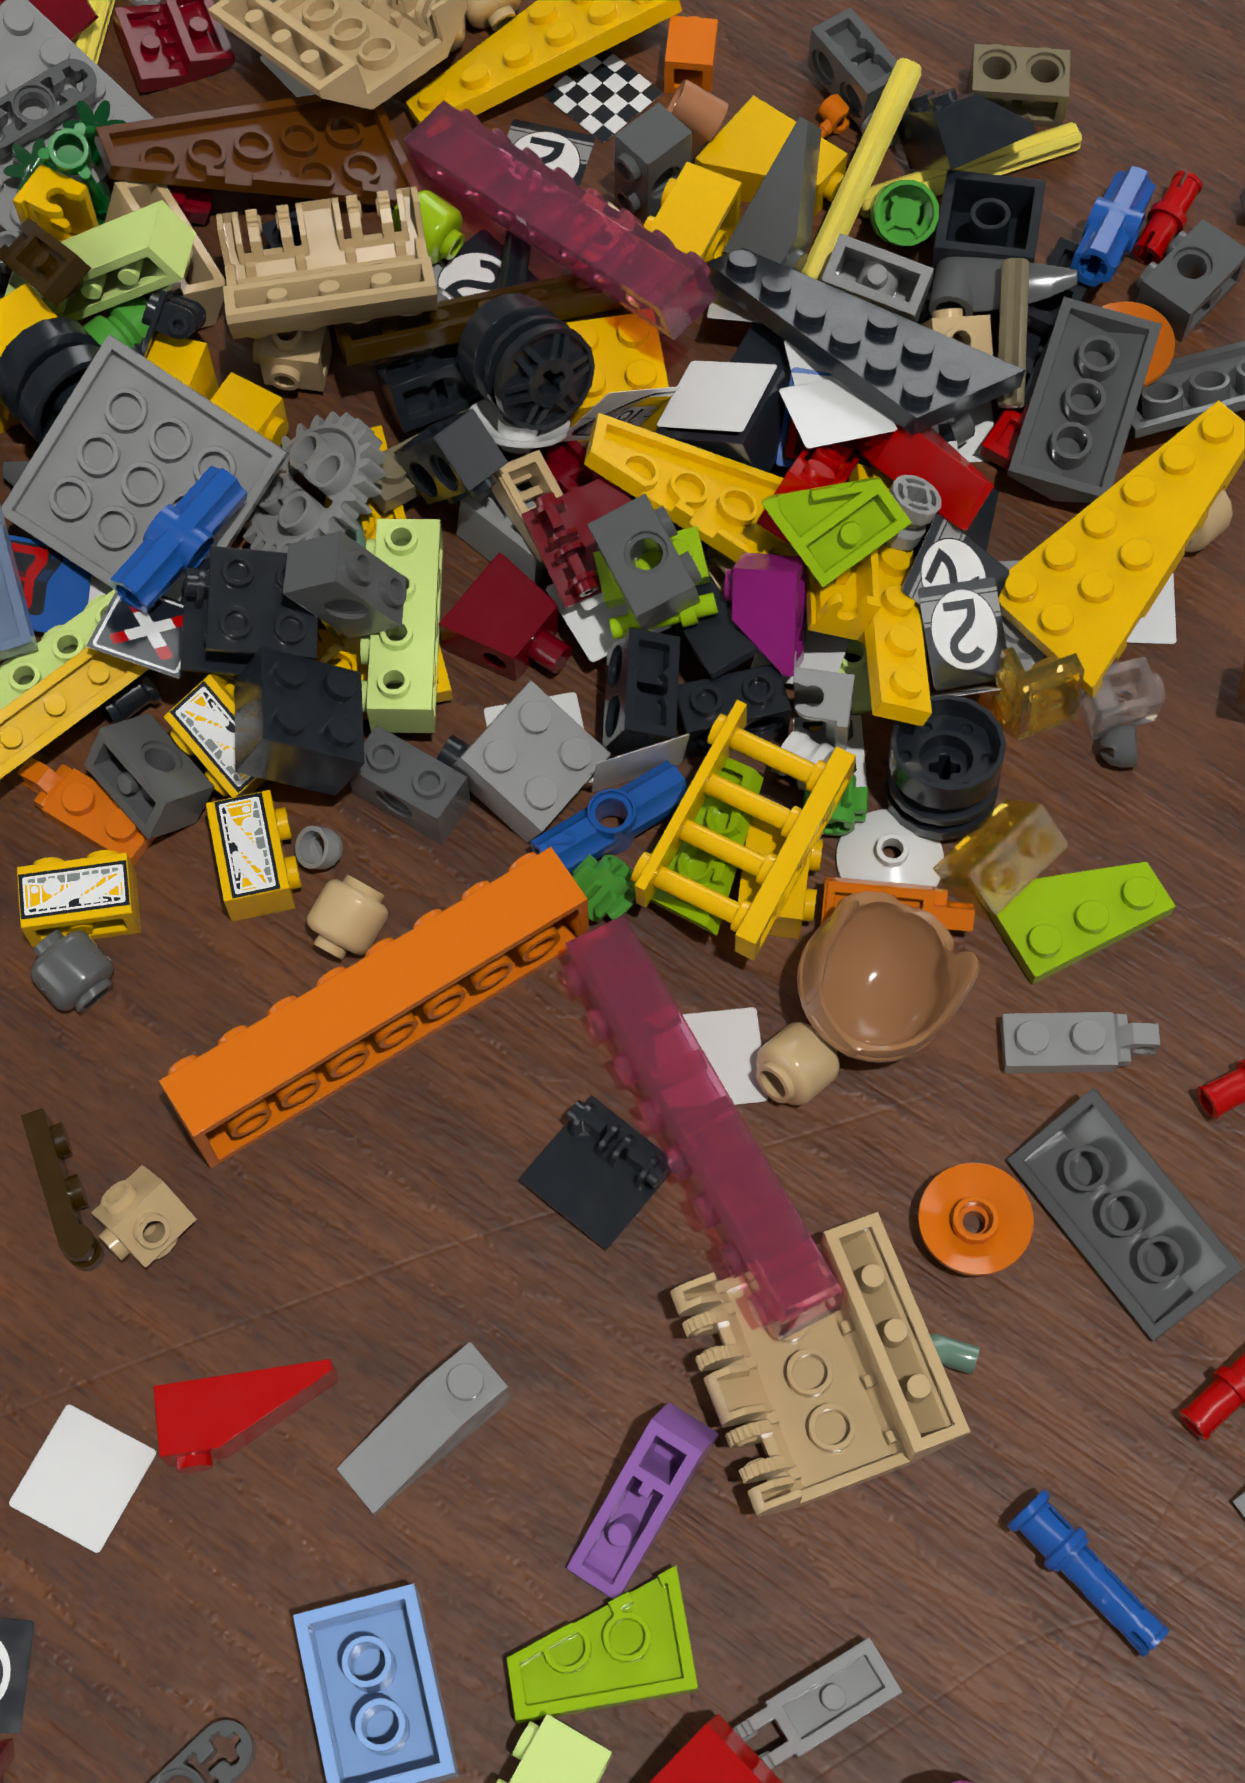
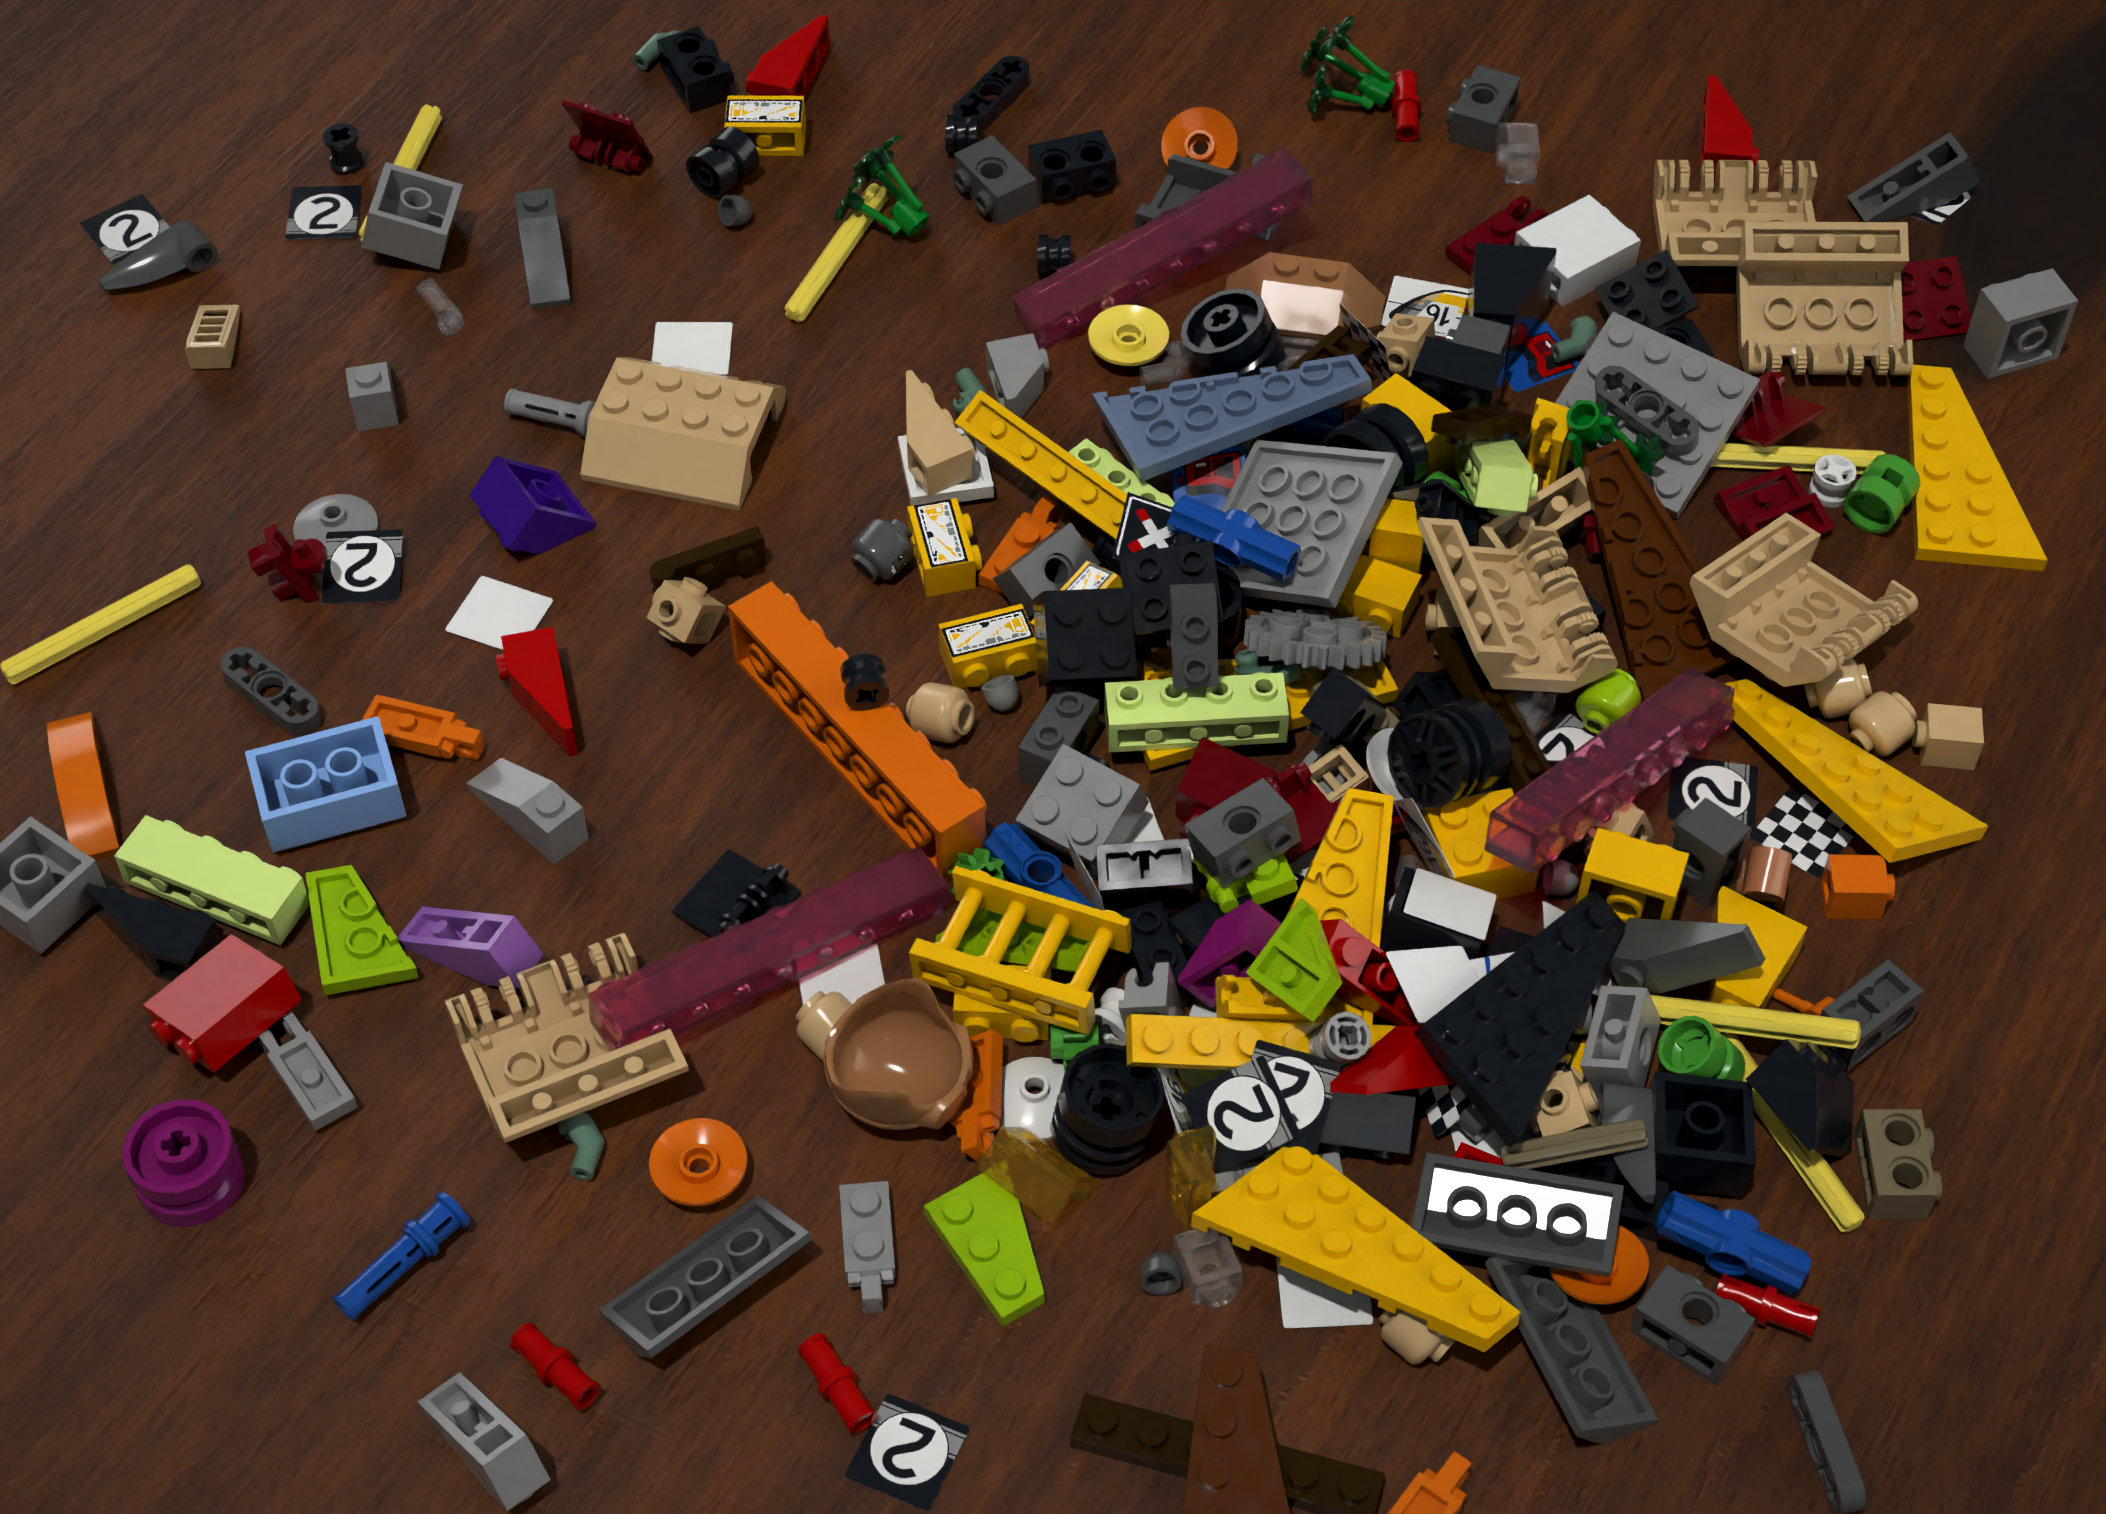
camera: 85 degrees right, 15 degrees down
(280, 1579) = (425, 729): none -> orange hinge
(363, 963) = (864, 682): none -> black wheel

